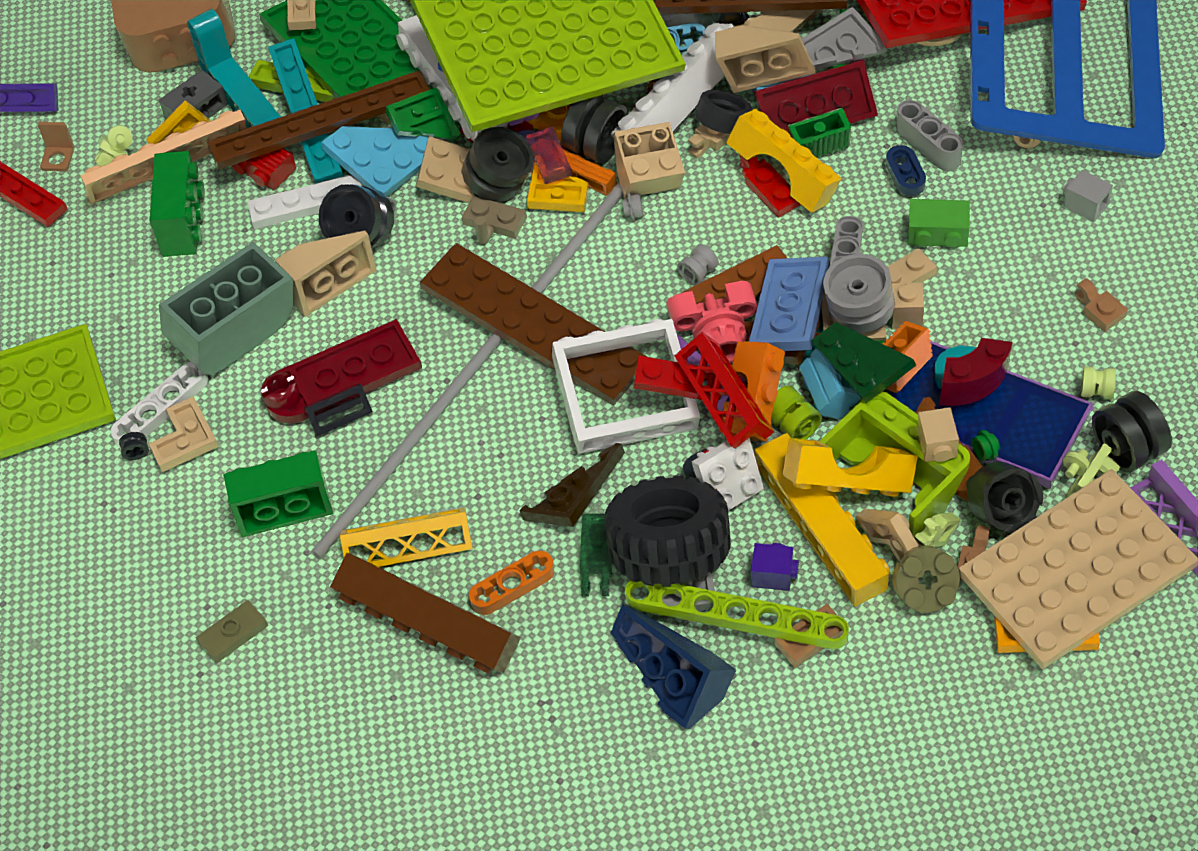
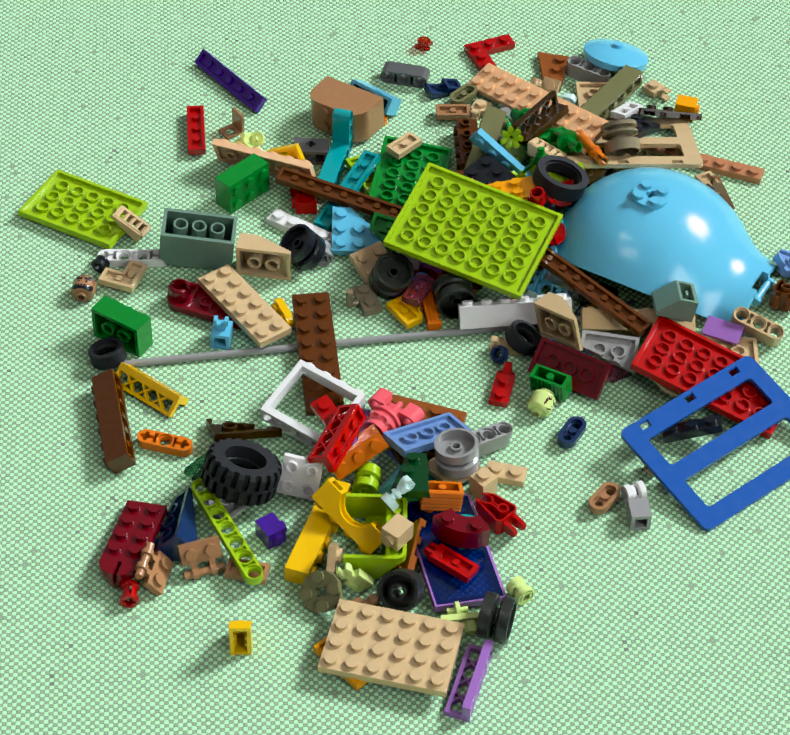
camera: 40 degrees right, 10 degrees down
(118, 364) = (138, 223): none -> tan slope
(156, 492) = (83, 288): none -> medium nougat head
(232, 631) = (40, 364): olive plate -> none
(287, 528) = (103, 346): none -> black tyre
(314, 419) = (208, 322): black tile -> none
(380, 342) = (244, 306): none -> tan plate
(398, 398) = (221, 333): none -> medium azure brick
(430, 312) = (282, 309): none -> yellow plate
(633, 206) = (429, 344): light grey plate -> none
(646, 729) = (135, 527): none -> dark red plate
(648, 159) = (457, 327): tan slope -> none
(698, 264) = (420, 390): light grey wheel -> none
(711, 156) = (495, 354): none -> dark blue plate
(722, 734) = (156, 572): none -> medium nougat plate
(728, 790) = (129, 593): none -> red bush
(745, 664) = (199, 551): none -> medium nougat plate
(810, 179) = (517, 393): yellow arch -> none
(841, 162) = (541, 402): none -> yellowish green head
(880, 406) = (404, 485): none -> light aqua piece
(916, 712) = (240, 637): none -> yellow arch
(929, 135) = (604, 426): light grey beam -> none
(939, 222) = (551, 465): bright green brick -> none
(969, 320) = (499, 514): none -> red hinge
(985, 446) = (423, 563): green plate -> none
(1004, 416) = (451, 561): none -> red hinge
(1024, 52) = (693, 428): none -> black plate
(1035, 216) = (600, 501): none -> medium nougat plate
(1052, 178) = (636, 490): none -> white wheel
(1100, 309) = (573, 566): medium nougat plate -> none

